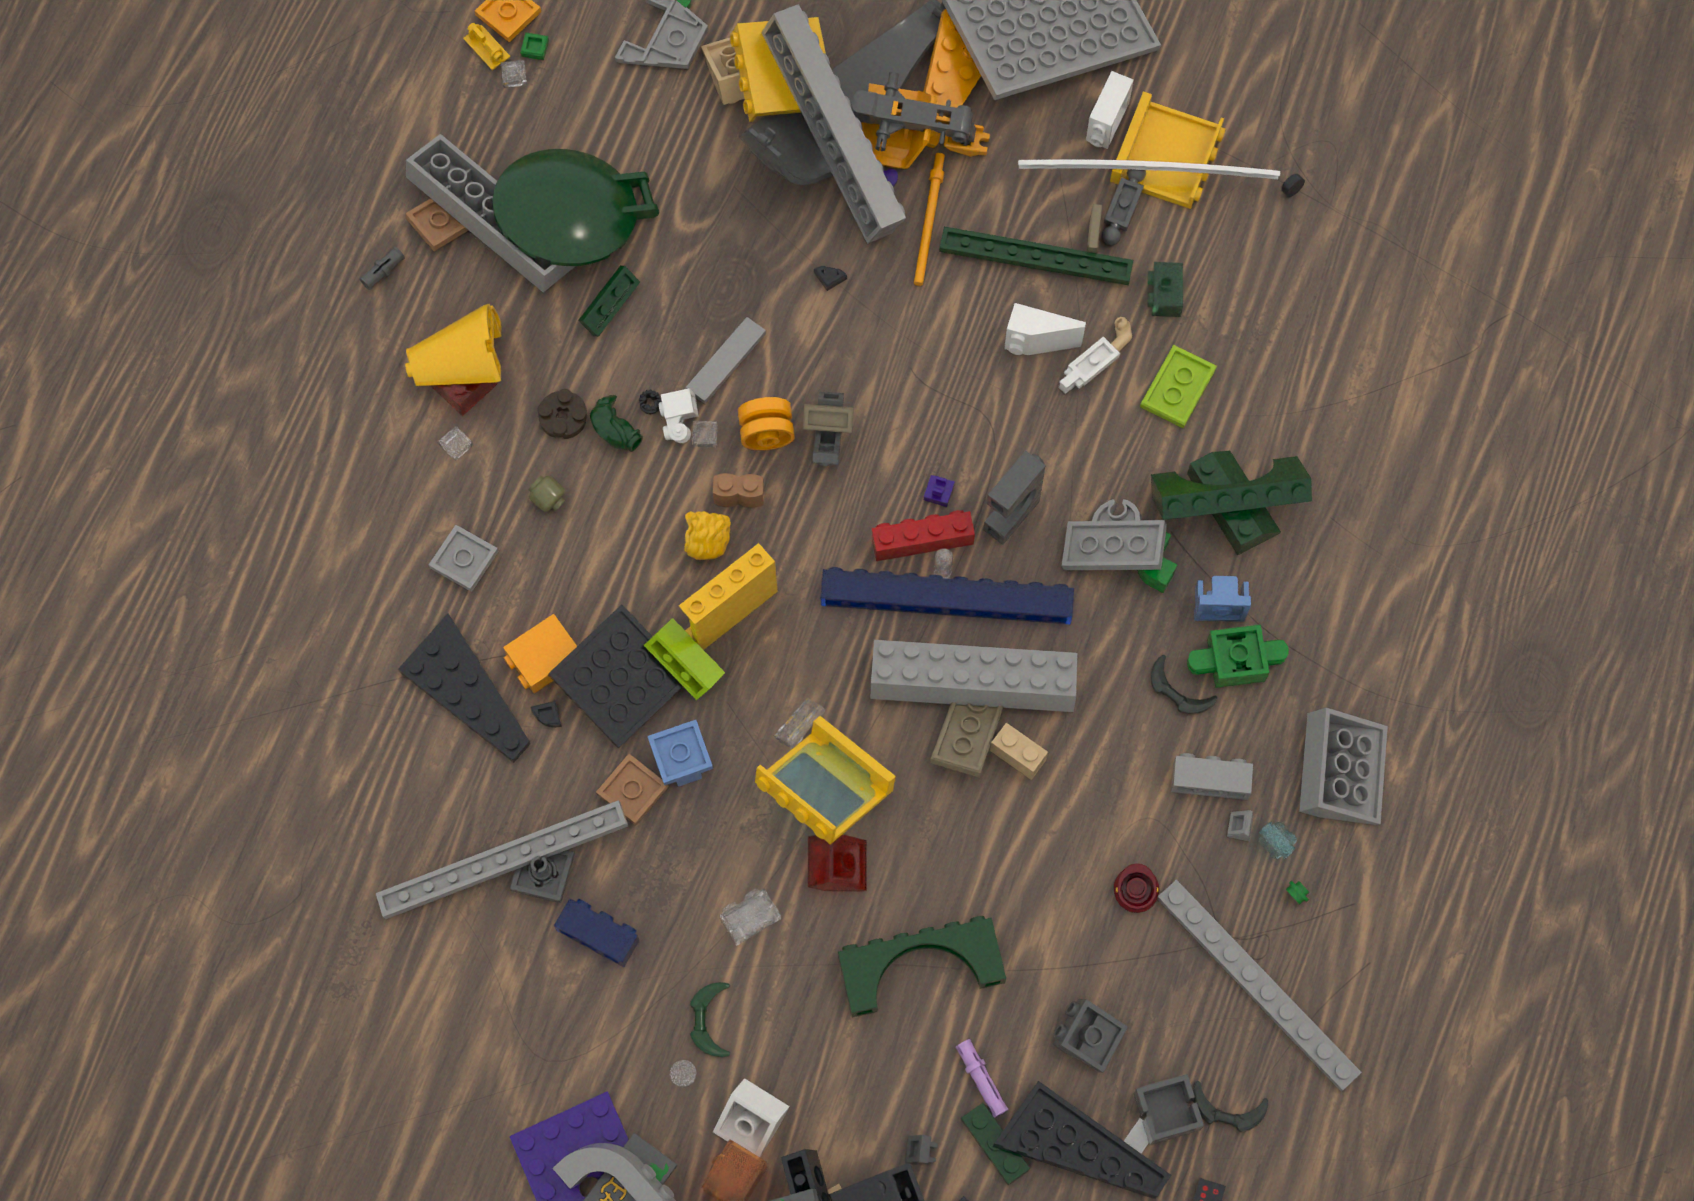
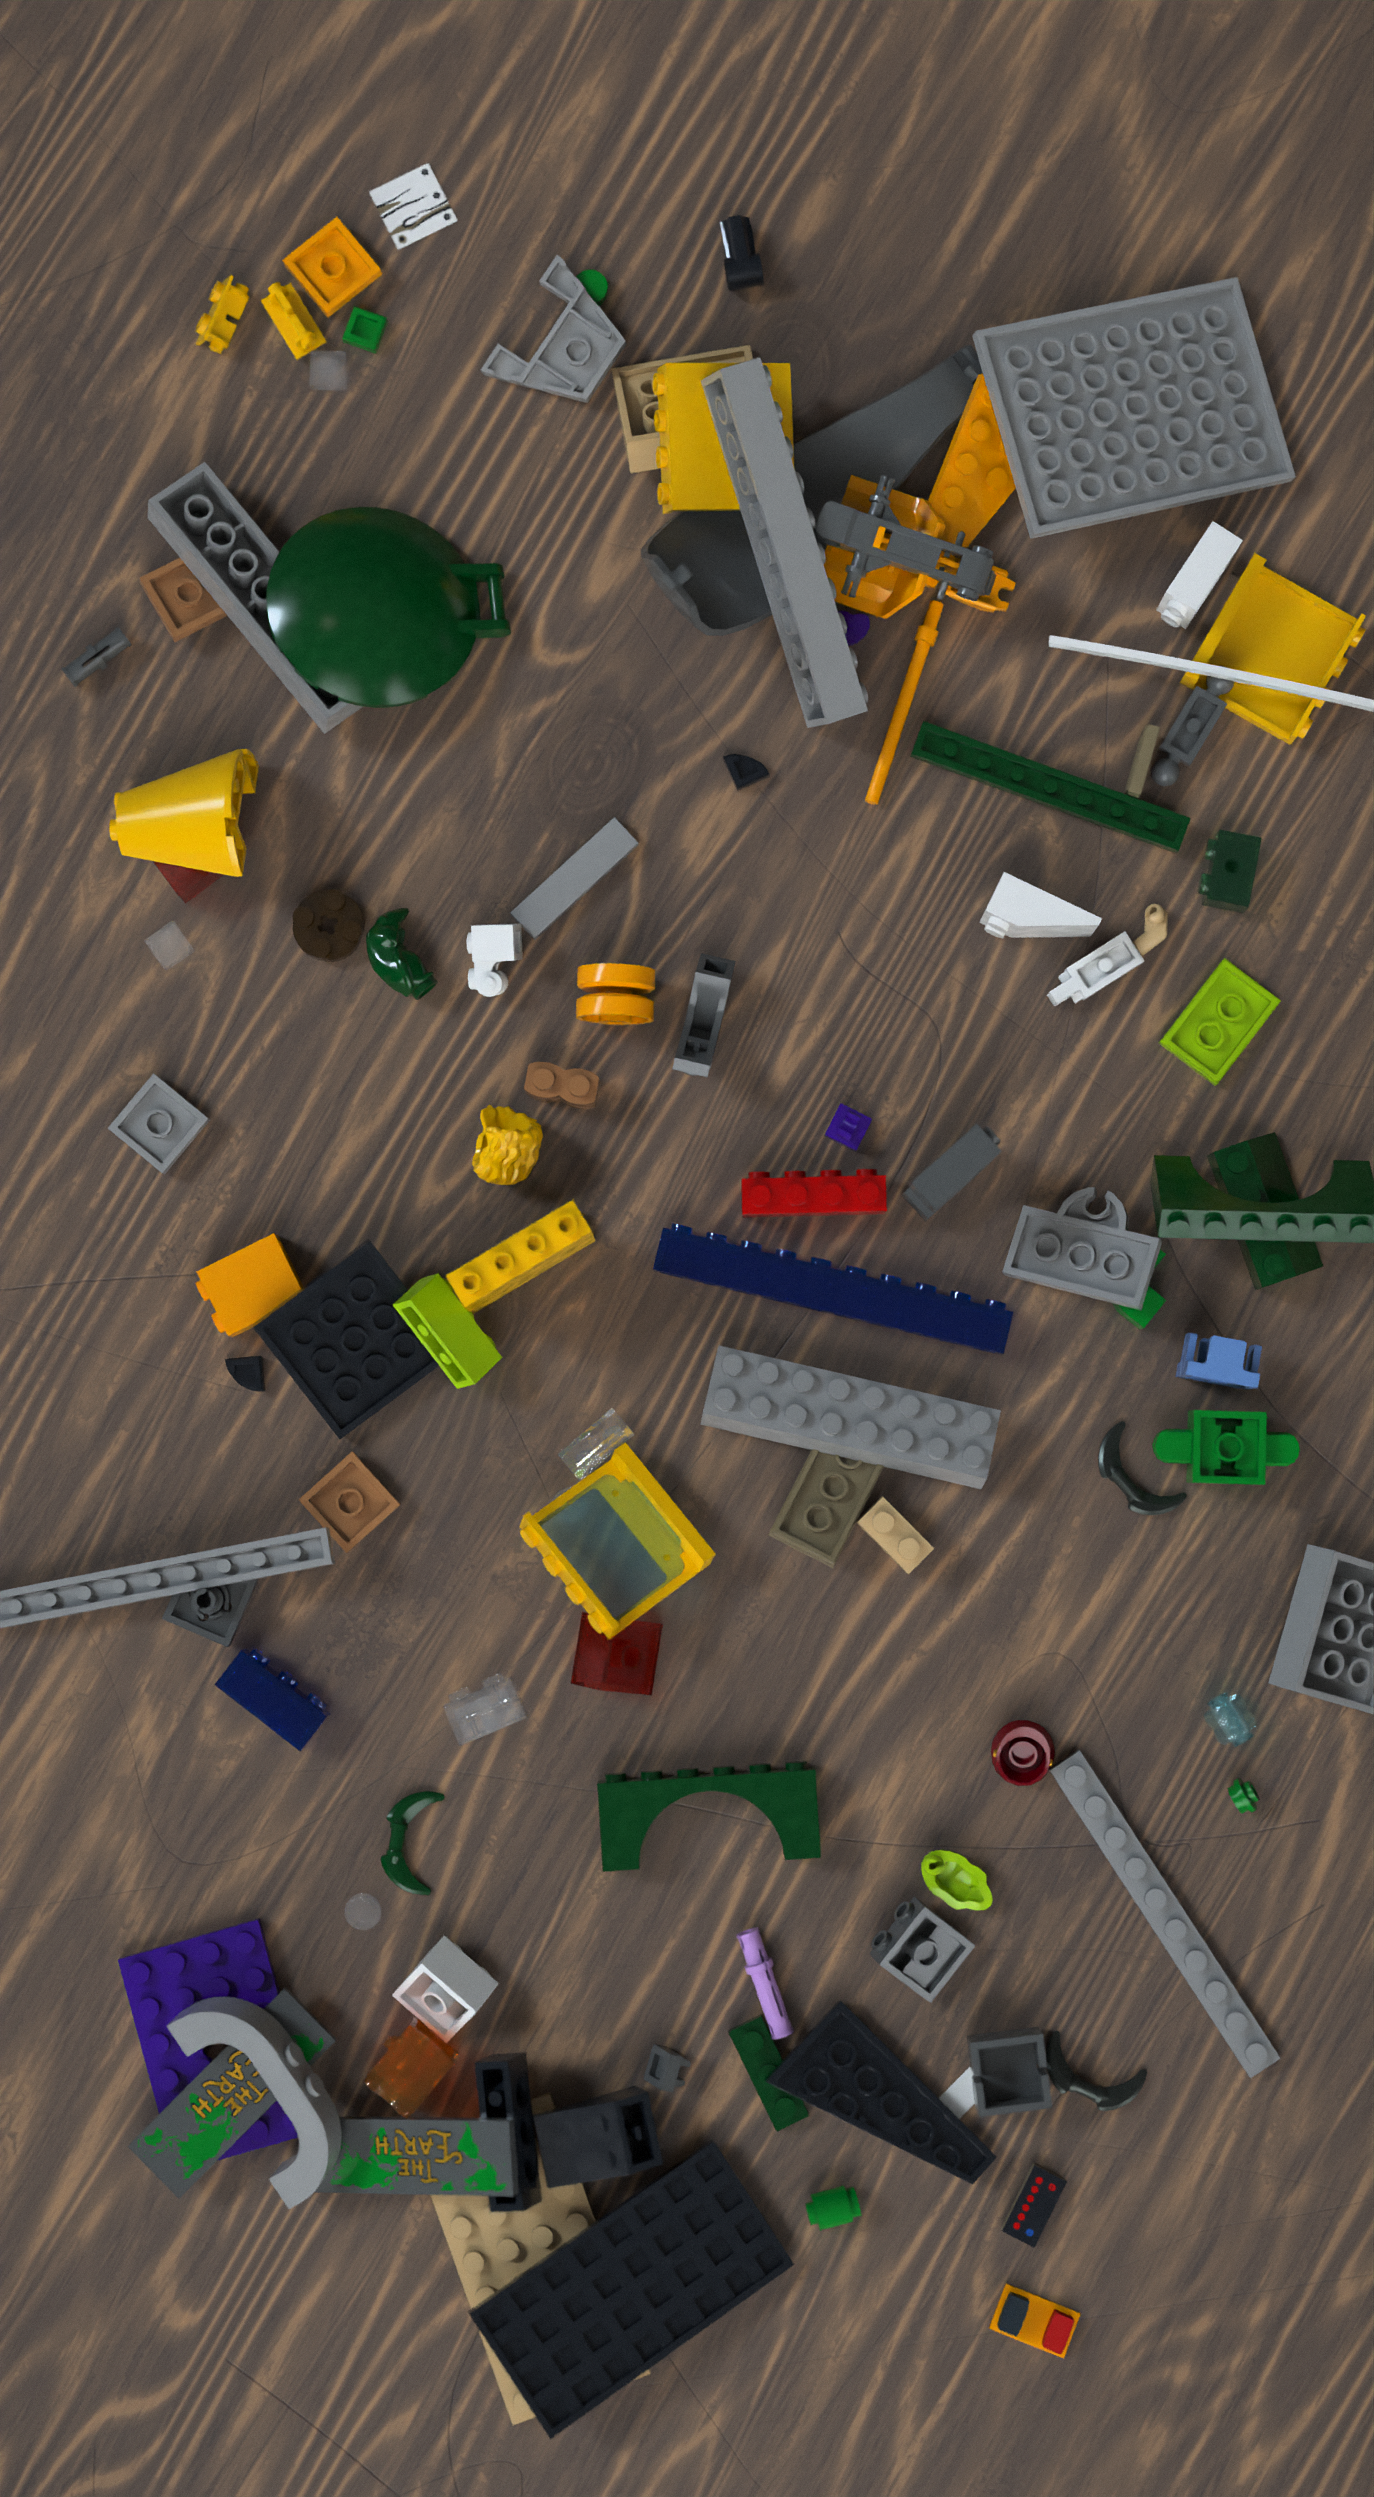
camera: 10 degrees right, 15 degrees up
(440, 41) = (226, 301): none -> yellow hinge
(456, 680) = (128, 1304): black wing -> none
(547, 493) = (289, 1046): olive head -> none
(609, 301) = (418, 761): dark green plate -> none
(654, 396) = (446, 921): black bush -> none
(680, 753) = (422, 1465): medium blue panel -> none
(704, 434) = (527, 987): clear tile -> none
(828, 418) = (706, 1001): dark tan tile -> none
(943, 563) = (835, 1244): clear cylinder -> none
(1105, 982) = (956, 1880): none -> lime arm
(1212, 777) = (1157, 1613): light grey brick -> none
(1240, 825) = (1182, 1686): light grey slope -> none

